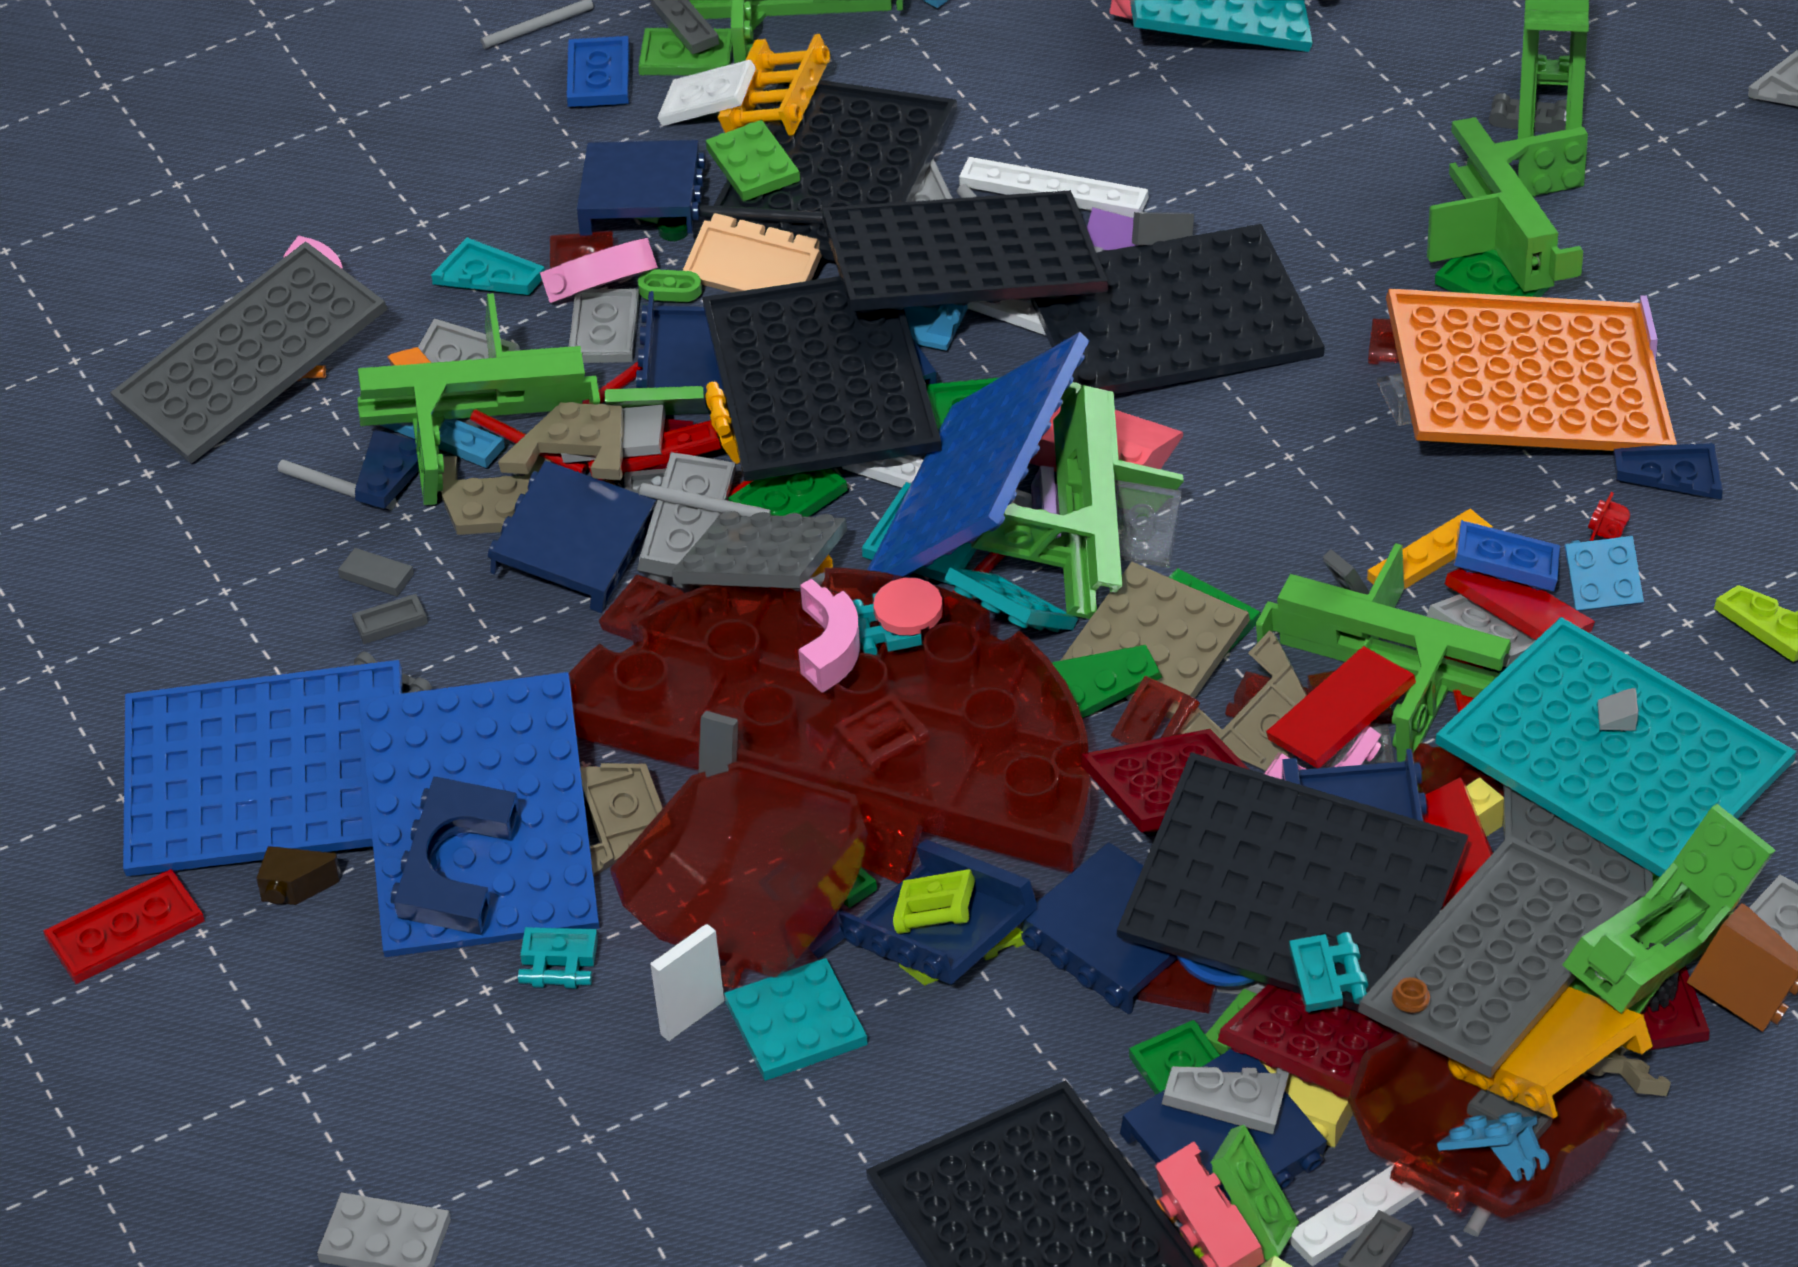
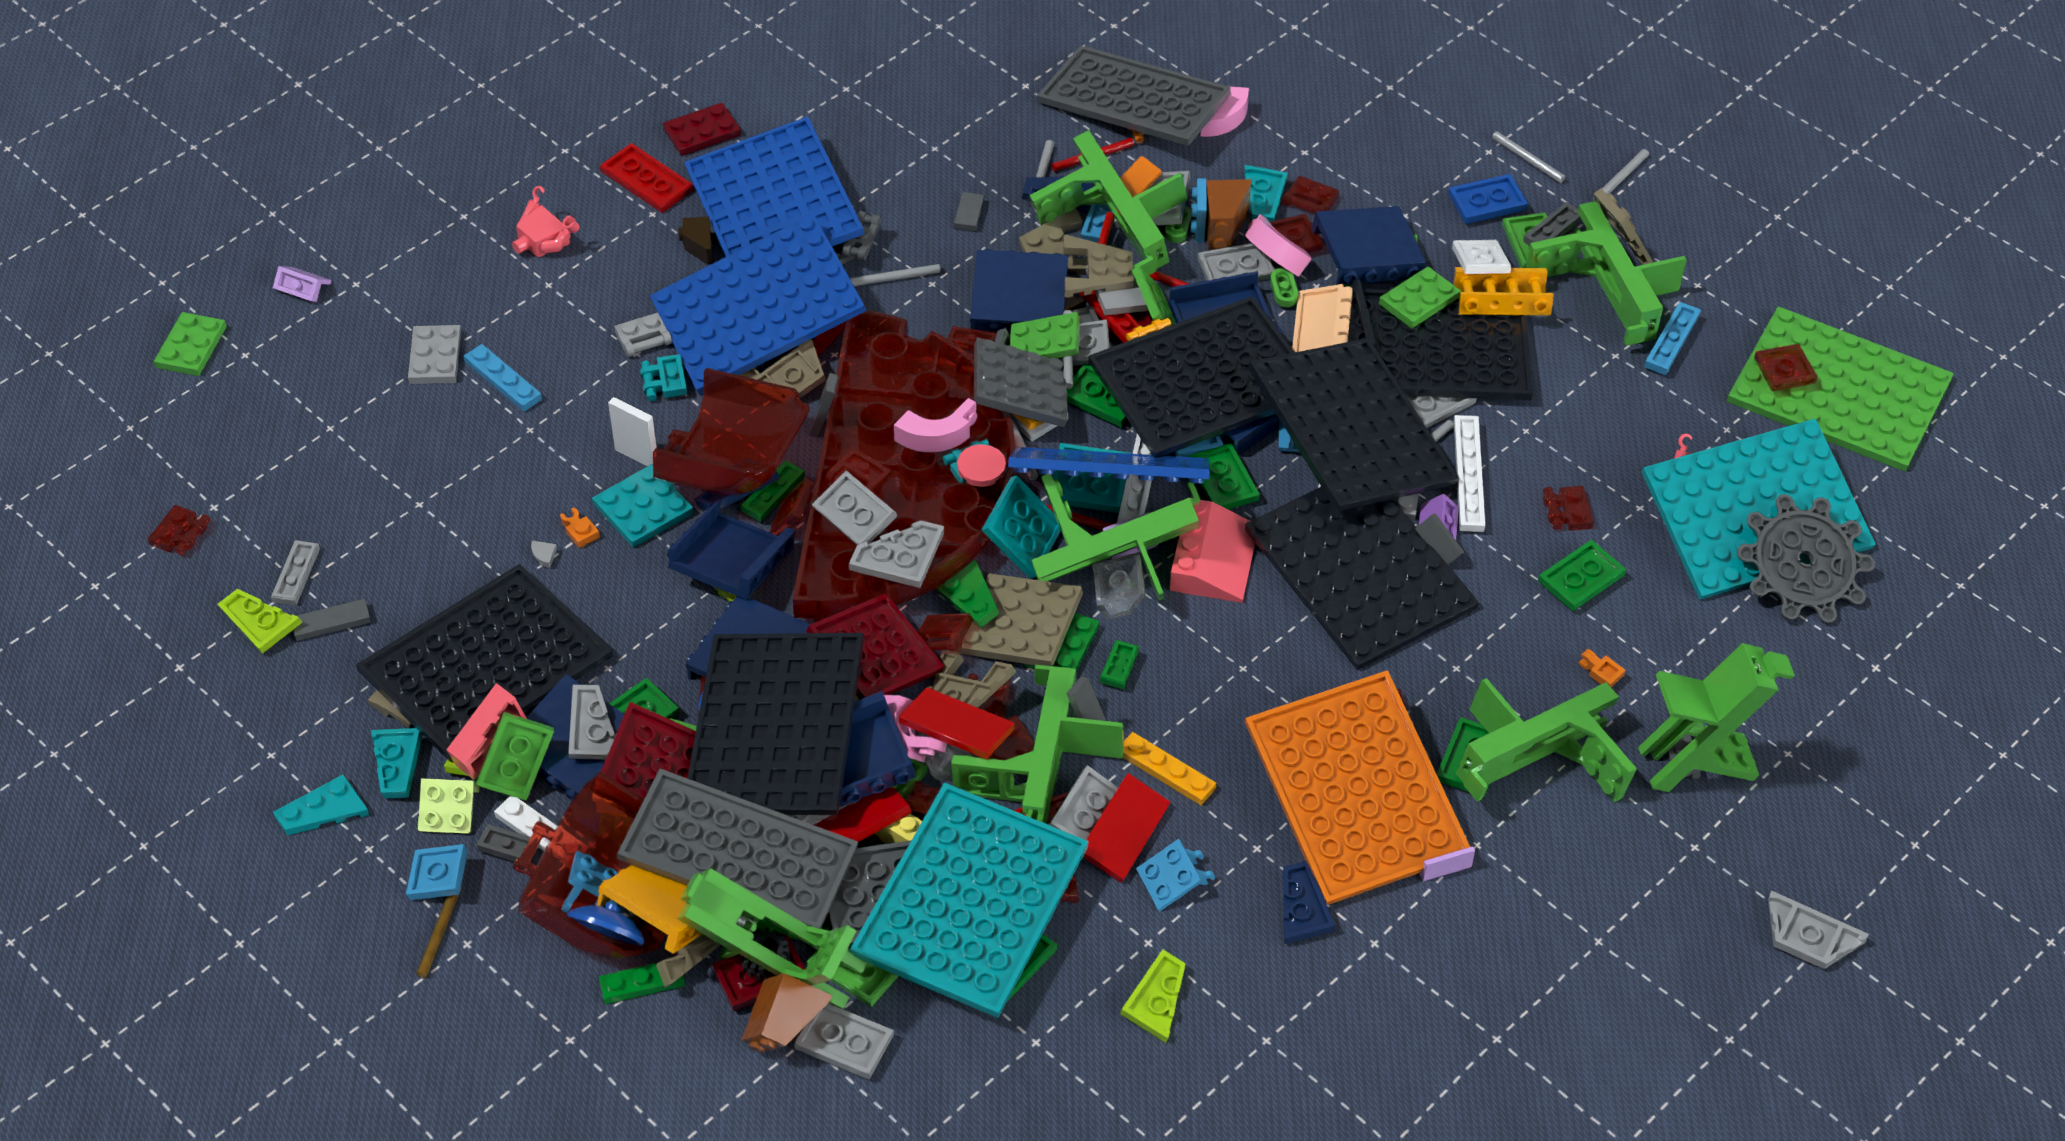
camera: 70 degrees right, 5 degrees up
(51, 845) = (701, 129): none -> dark red plate
(188, 1062) = (541, 230): none -> coral torso
(326, 426) = (1060, 165): none -> red bar
(389, 619) = (931, 229): dark grey tile -> none
(445, 973) = (642, 334): none -> light grey plate
(448, 810) = (683, 290): dark blue arch -> none
(467, 652) = (895, 275): none -> light grey bar
(470, 1155) = (503, 377): none -> dark azure plate
(513, 228) = (1310, 195): none -> clear red plate
(515, 318) = (1199, 210): none -> dark azure plate
(527, 303) = (1226, 211): none -> dark orange slope
(678, 515) = (1048, 336): none -> bright green plate
(815, 1096) = (579, 530): none -> orange plate
(845, 1145) = (543, 552): none -> light grey tile
(930, 893) = (745, 542): lime plate -> none
(946, 744) = (854, 509): none -> light grey tile
(1041, 711) = (900, 554): none -> light grey plate
(1137, 119) = (1575, 508): none -> clear red plate
(1248, 130) = (1582, 575): none -> green plate
(1254, 562) = (1119, 664): none -> green plate
(1317, 974) = (698, 748): teal plate -> none
(1397, 143) = (1602, 669): none -> orange plate
(1411, 995) = (665, 787): dark orange plate -> none
(1507, 556) = (1164, 808): blue plate -> none
(1580, 1111) = (608, 922): none -> blue dish
(1609, 519) = (1232, 866): red hinge -> none
(1618, 711) = (995, 889): light grey slope -> none
(1638, 1135) = (634, 983): none -> green plate

